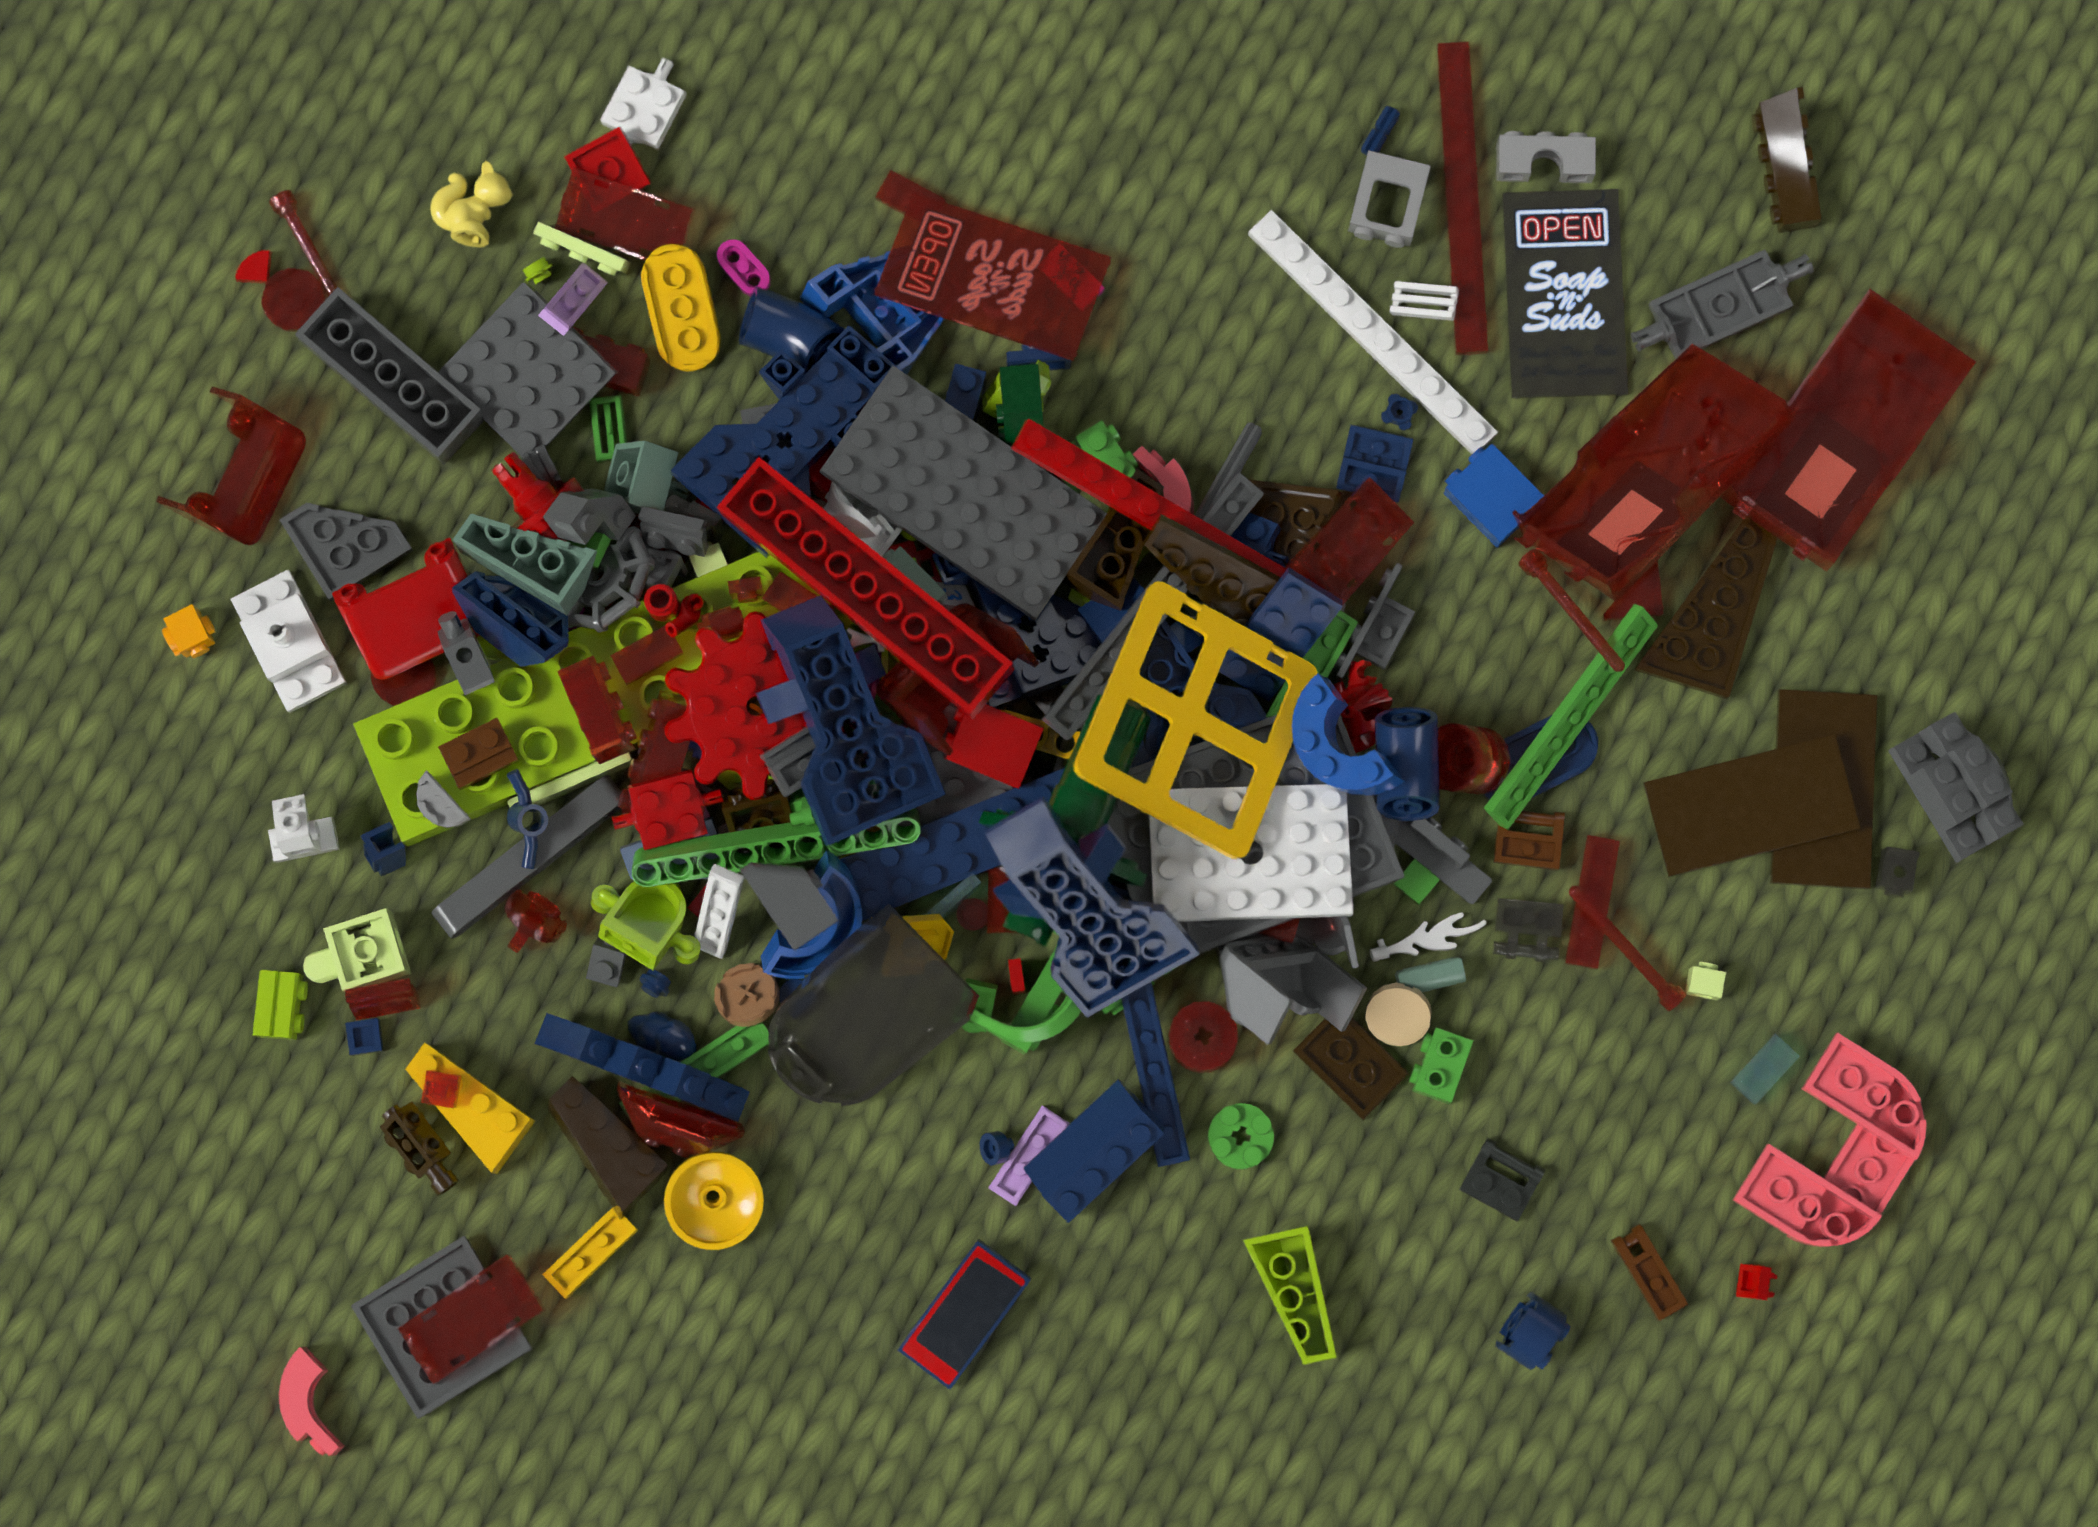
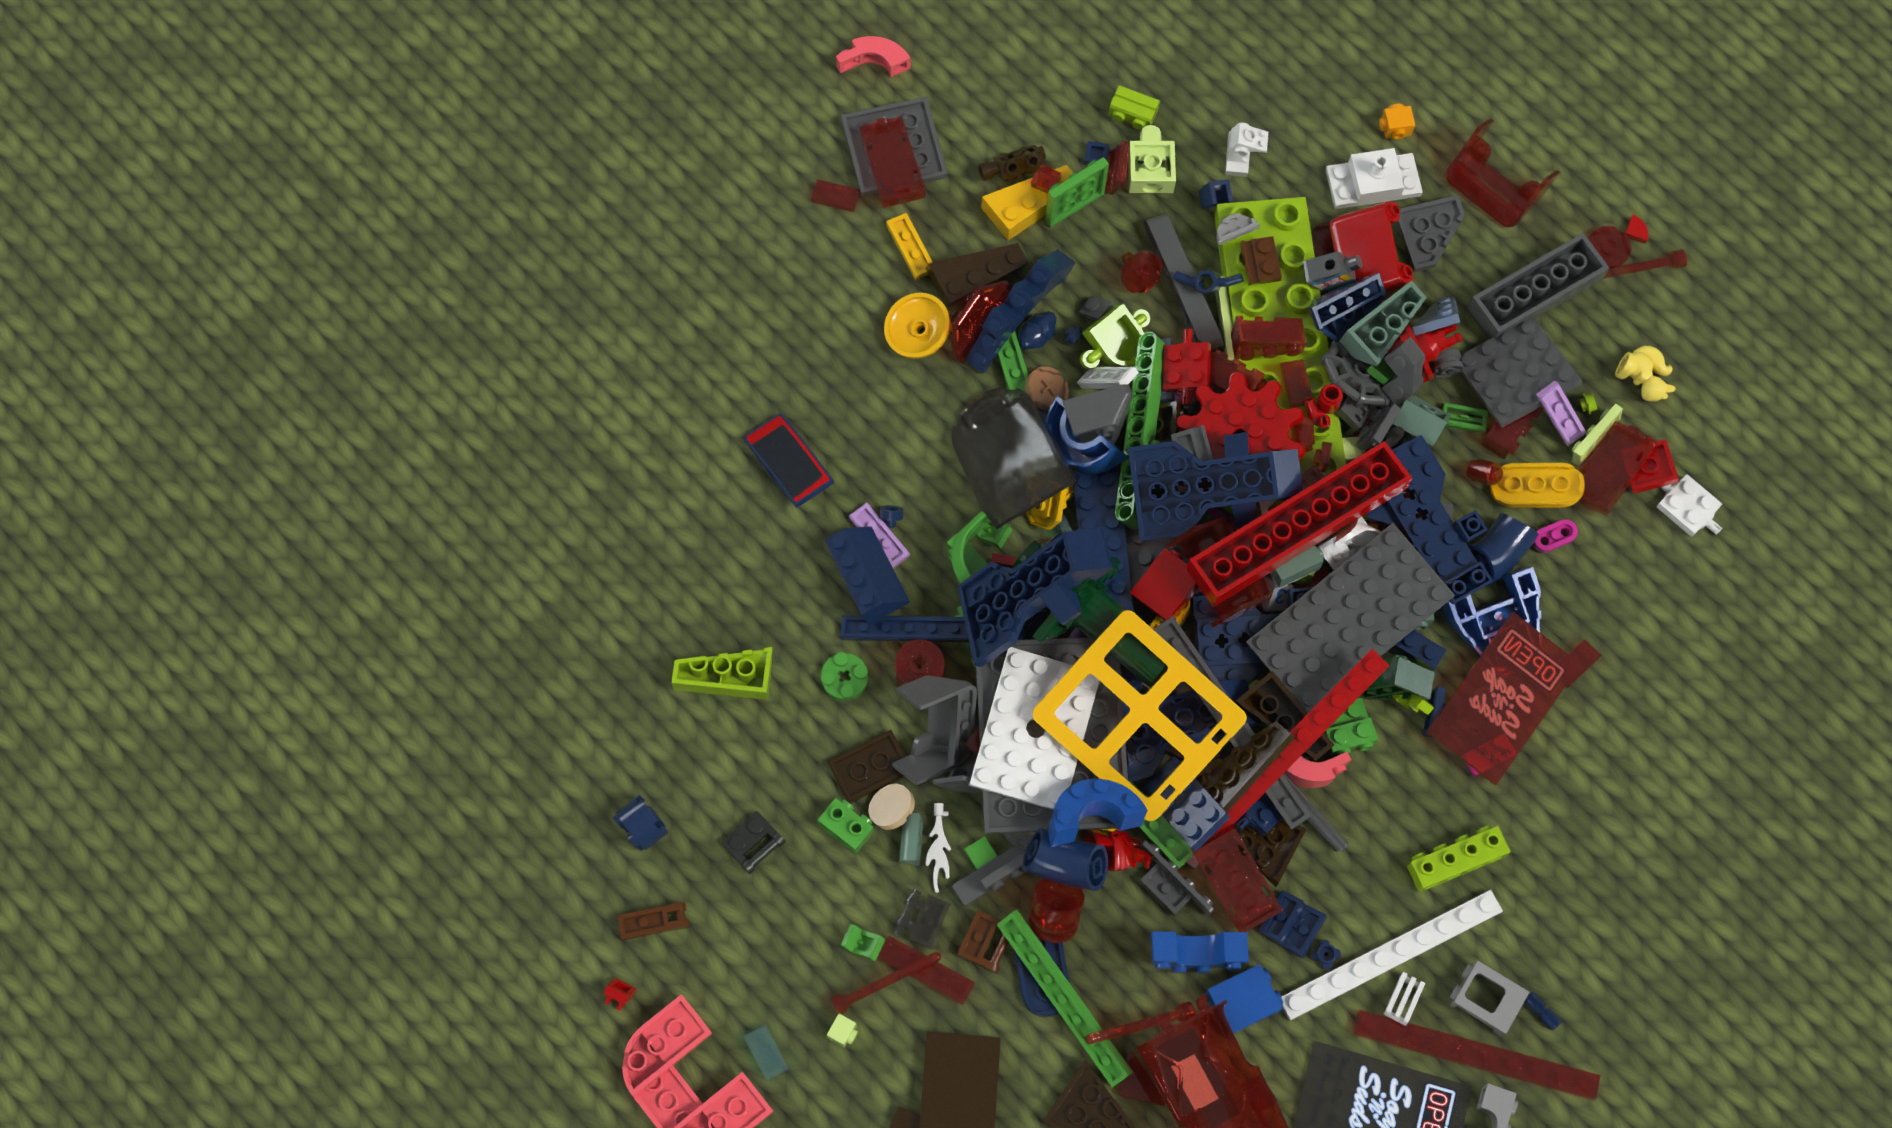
camera: 100 degrees right, 10 degrees down
(445, 1041) = (1076, 191): none -> bright green plate
(482, 493) = (1438, 316): none -> sand blue wing
(543, 1385) = (835, 195): none -> clear red tile
(683, 379) = (1484, 471): none -> clear red brick
(1222, 280) = (1458, 859): none -> lime brick
(1454, 566) = (1199, 952): none -> blue brick
(1586, 992) = (862, 943): none -> bright green bracket

